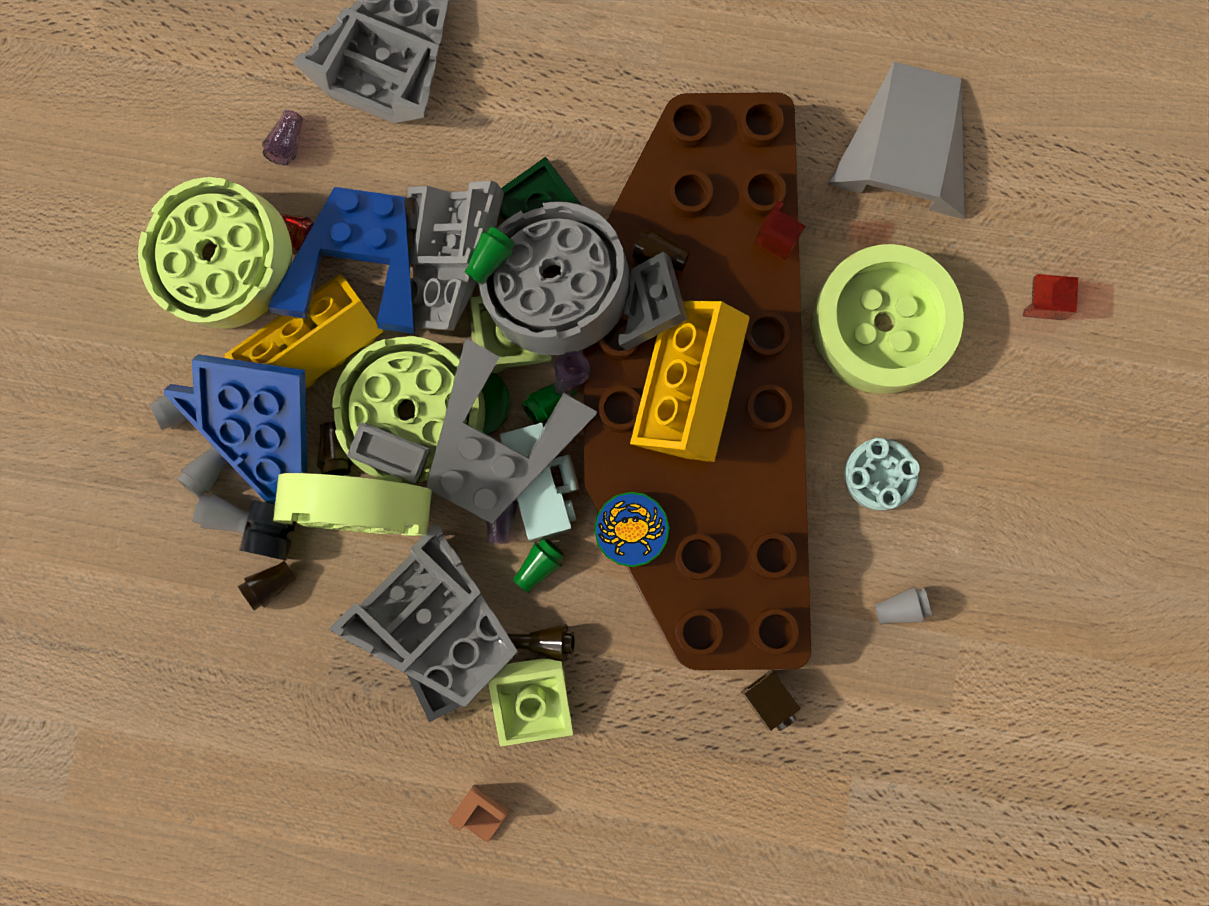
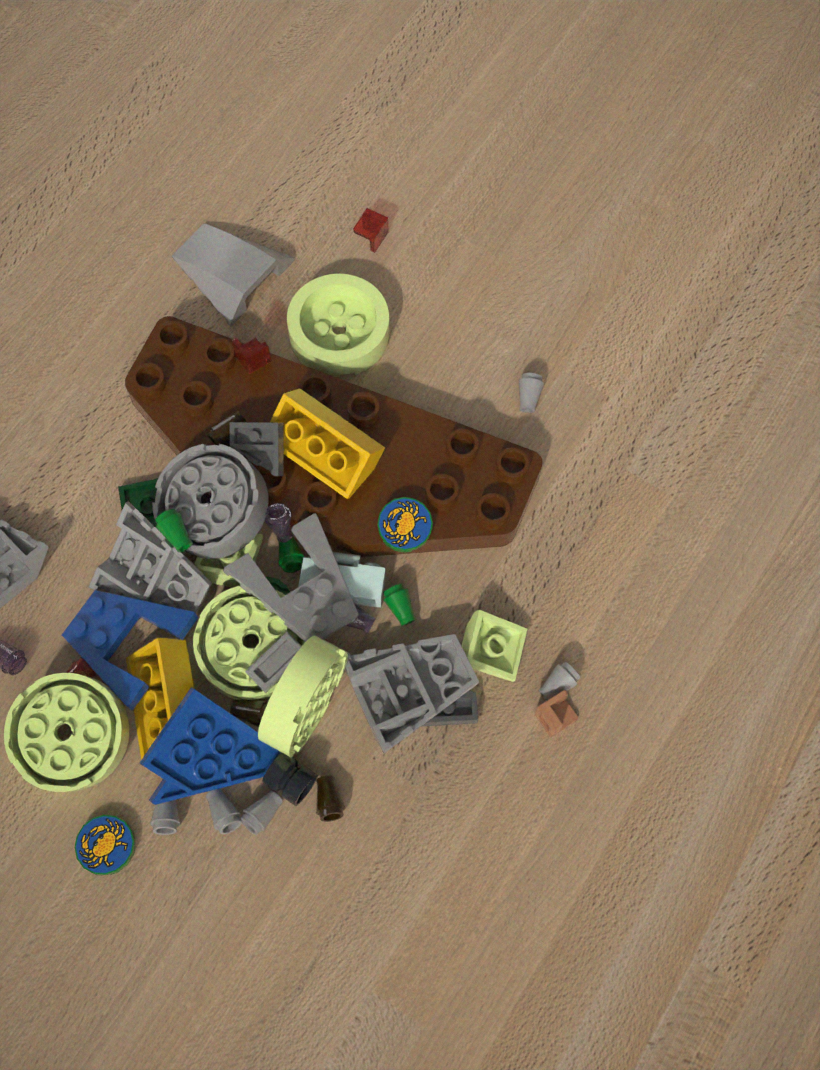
camera: 65 degrees left, 15 degrees down
(118, 358) = (105, 845): none -> tile
(522, 802) = (562, 678): none -> light grey cone
(551, 642) = (457, 617): dark brown cone -> none
(771, 701) = (556, 494): dark brown brick -> none
(881, 474) = (437, 371): light aqua tile -> none

